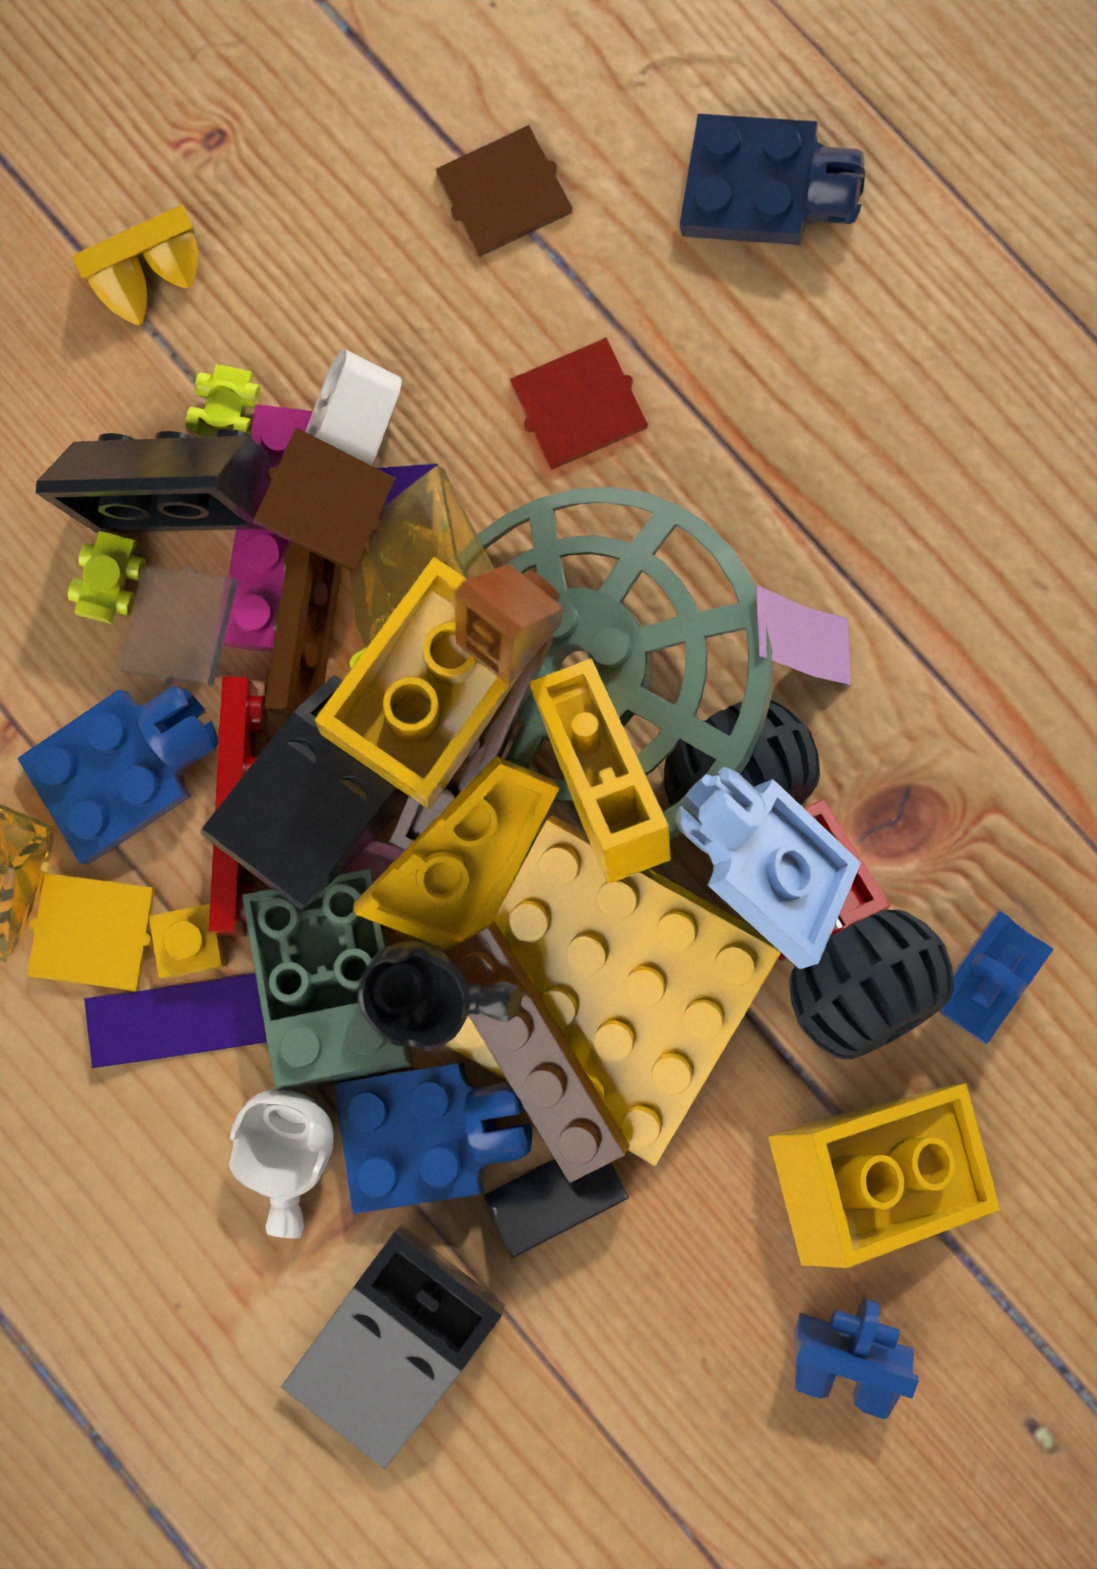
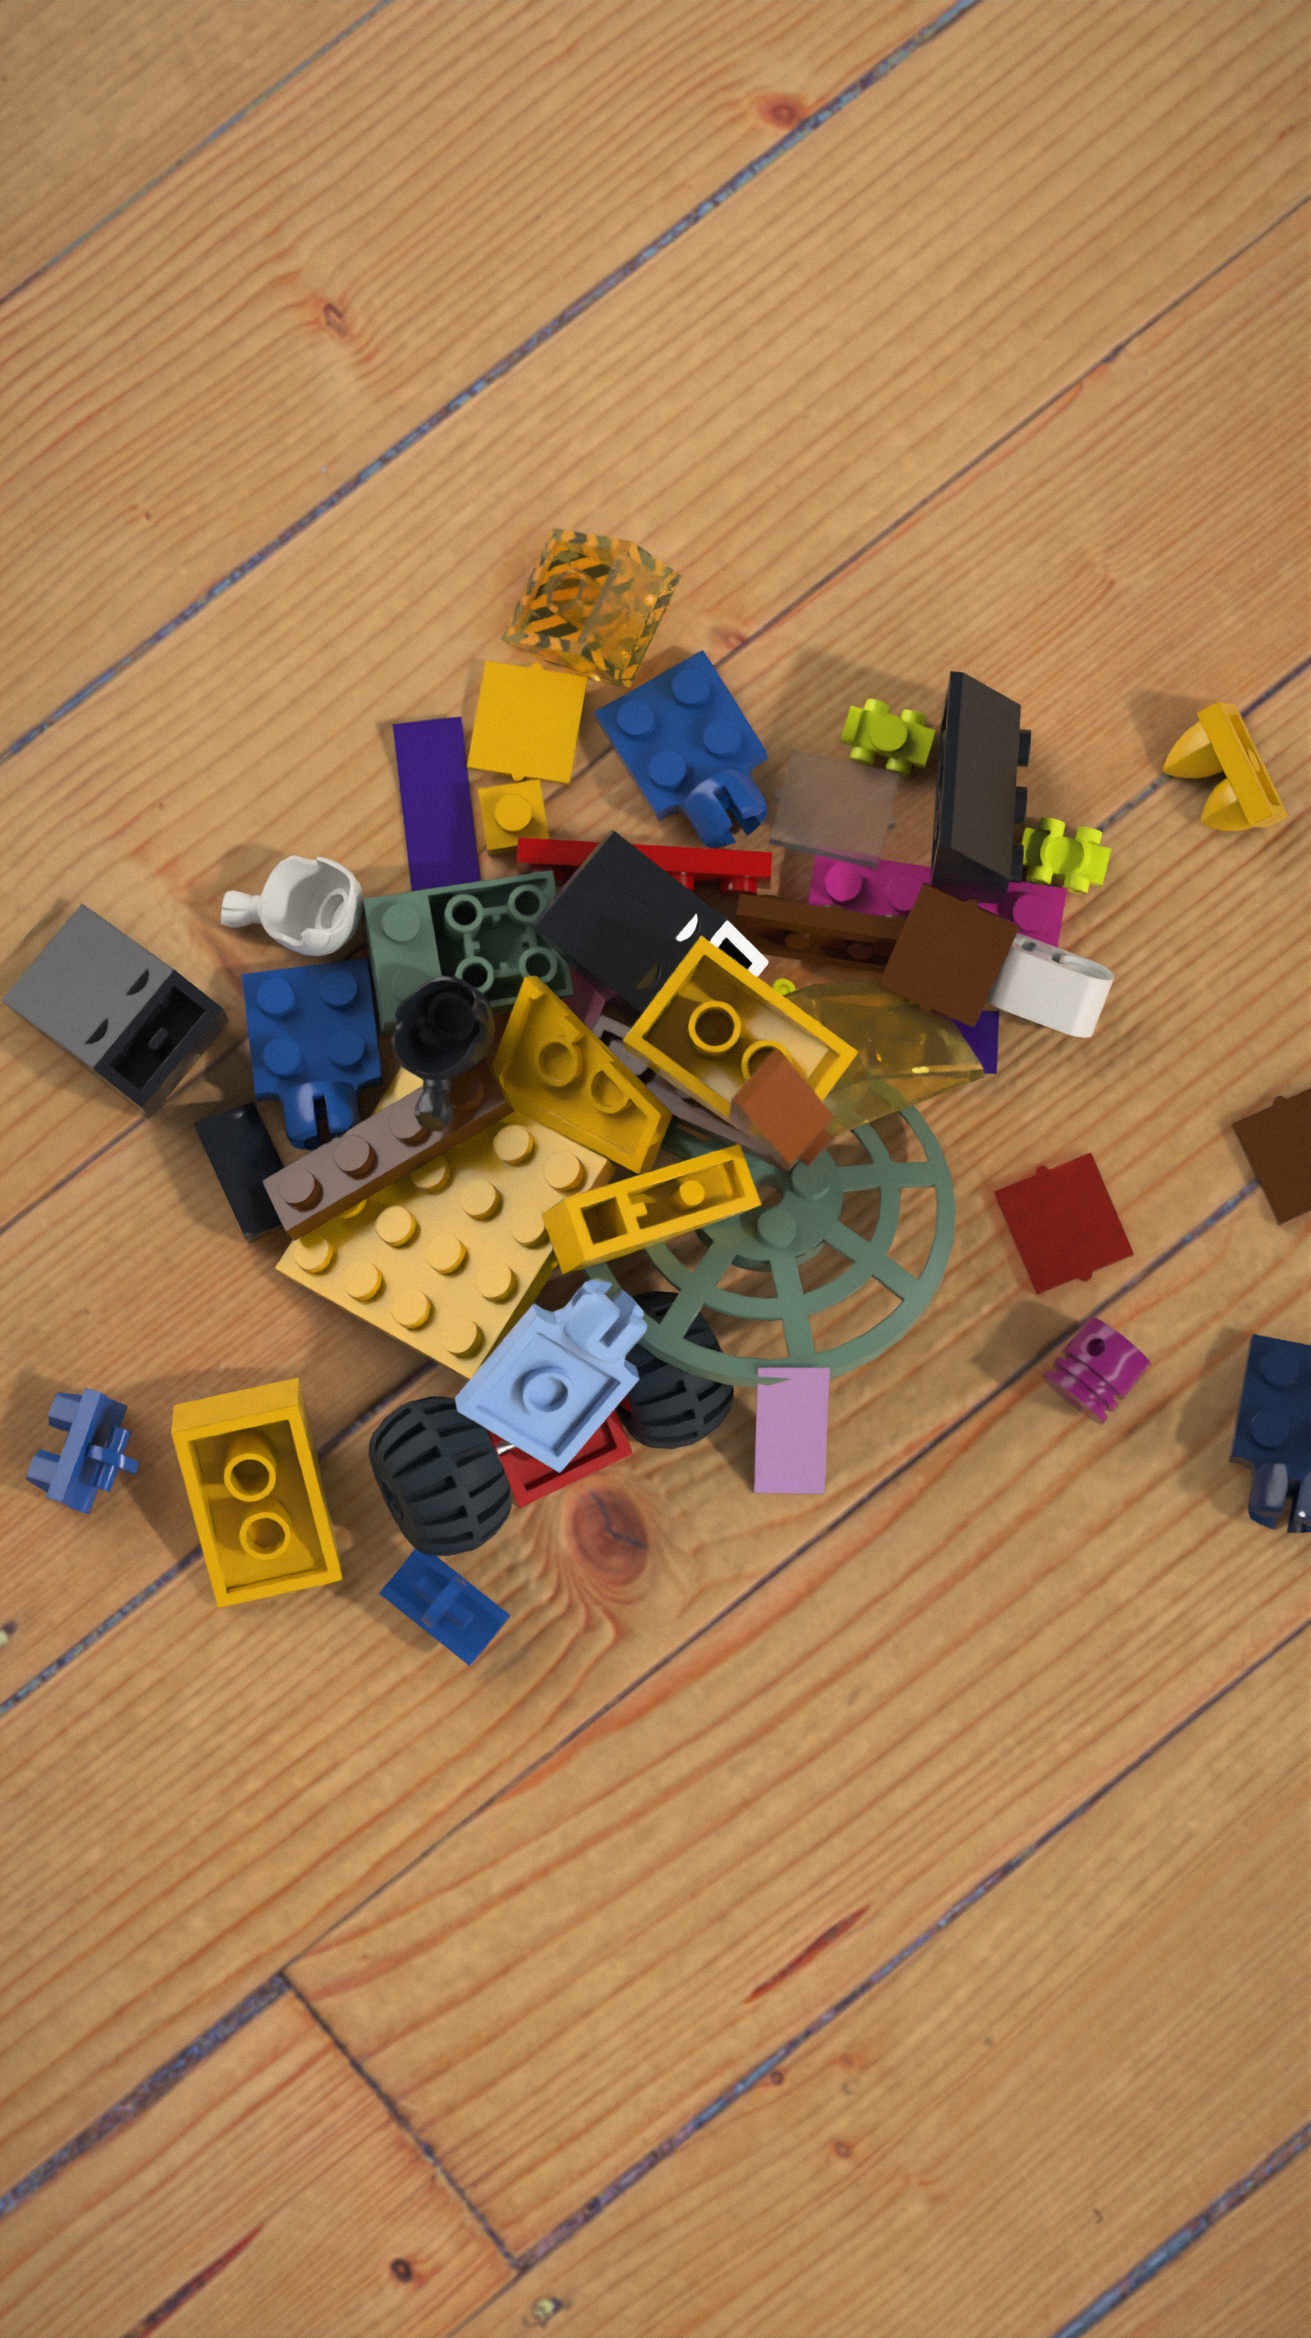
camera: 90 degrees right, 0 degrees up
(737, 363) = (1097, 1370): none -> magenta piece

